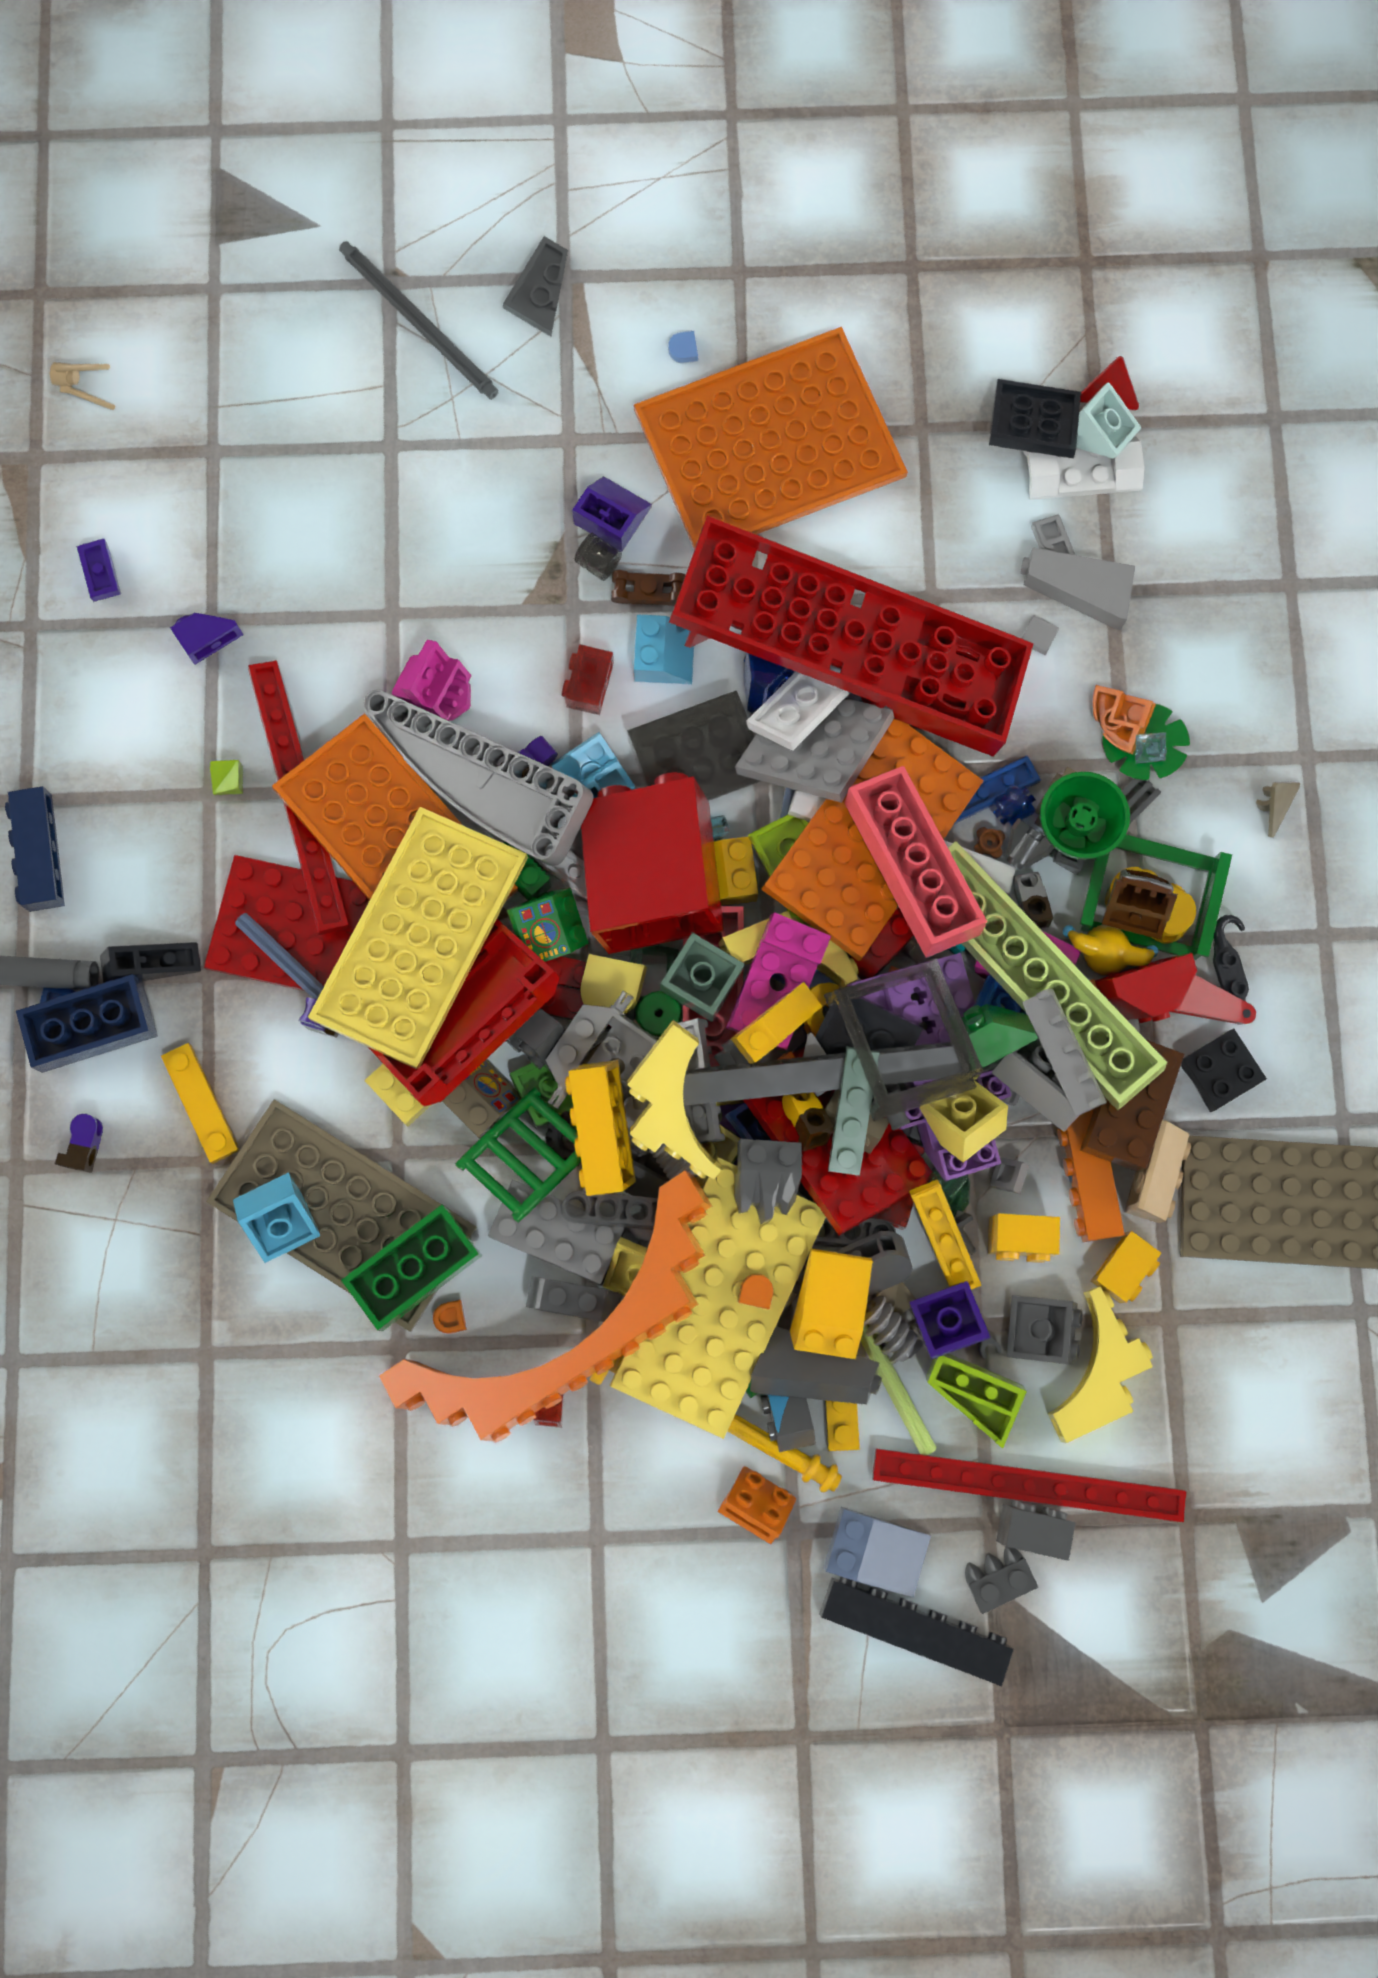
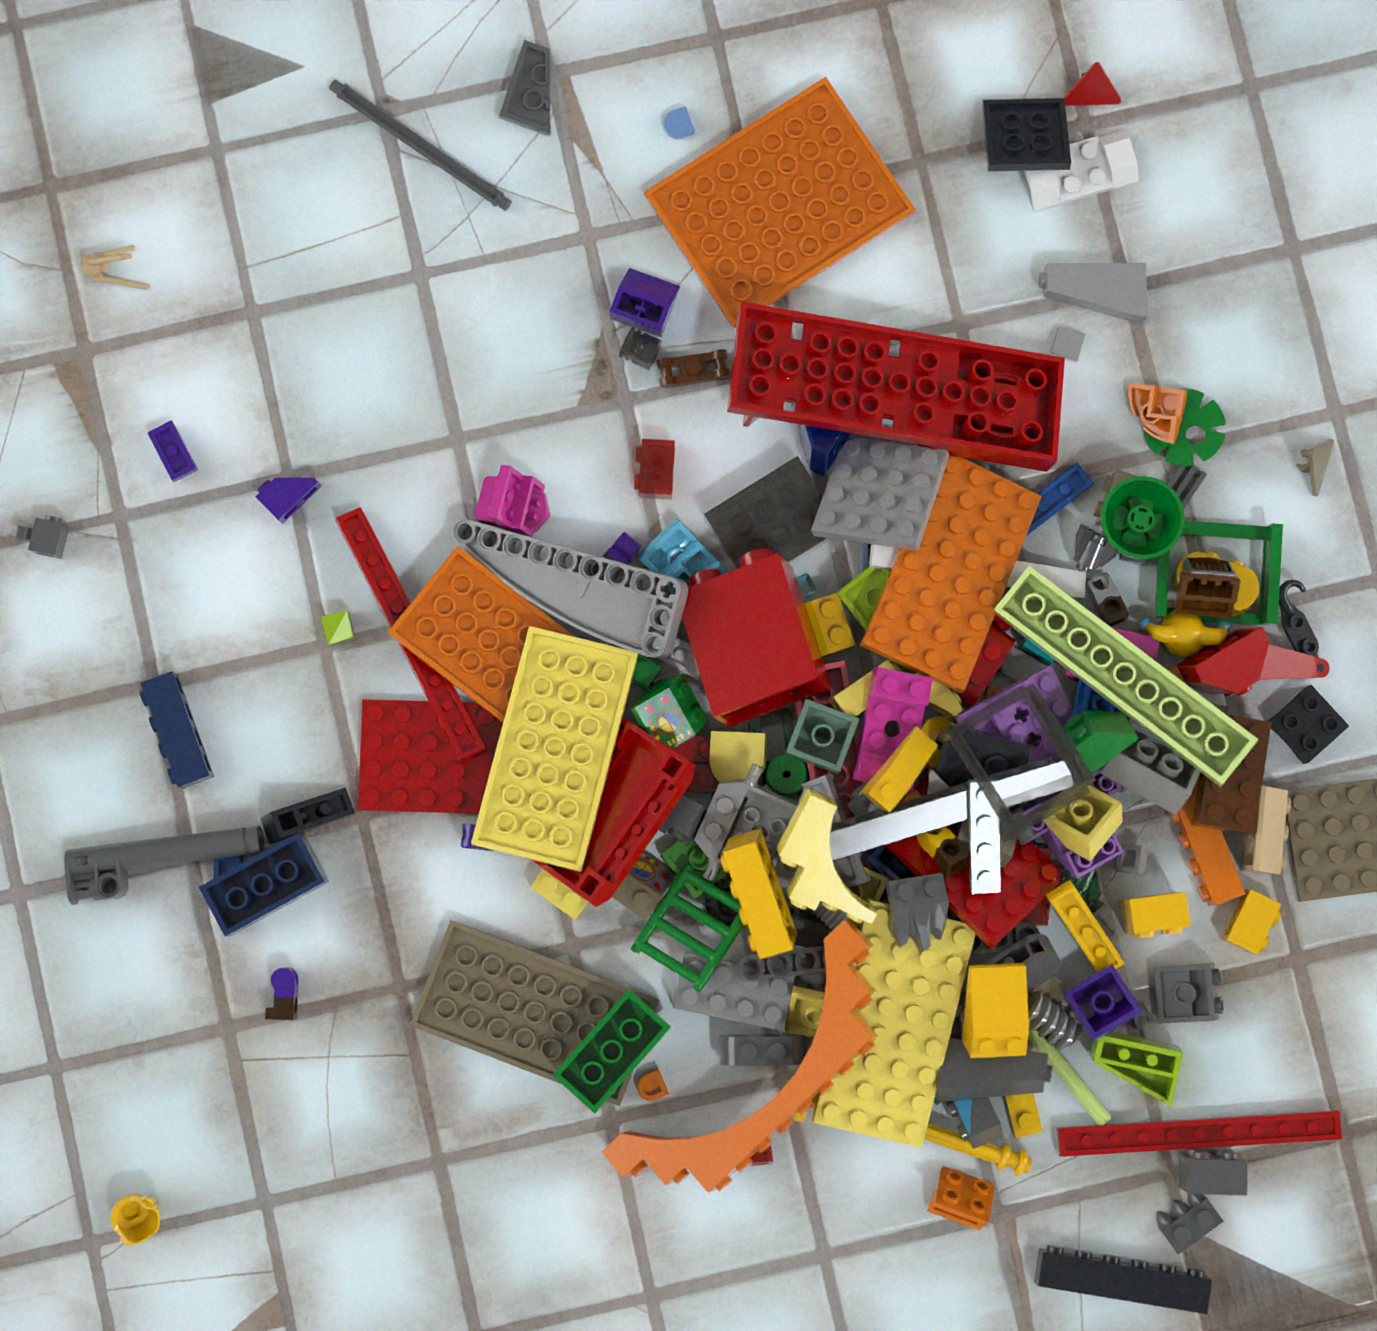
camera: 10 degrees left, 5 degrees up
(200, 1103) = (382, 935): yellow plate -> none
(275, 1217) = (478, 1028): medium azure slope -> none
(279, 955) = (429, 788): sand blue axle -> none
(661, 651) = (718, 431): medium azure slope -> none
(756, 1291) = (927, 1013): orange tile -> none
(795, 710) = (856, 468): white plate -> none
(876, 1552) = (1074, 1219): sand blue slope -> none
(915, 861) = (996, 595): coral brick -> none
(997, 838) = (1061, 545): dark orange plate -> none
(1014, 805) = (1074, 514): clear blue piece -> none
(1052, 535) = (1063, 245): light grey tile -> none
(1064, 1052) = (1164, 746): light grey hinge -> none
(1106, 424) = (1095, 129): light aqua slope -> none
(1113, 1359) = (1254, 1008): light yellow arch -> none
(1150, 747) = (1190, 435): clear light blue slope -> none

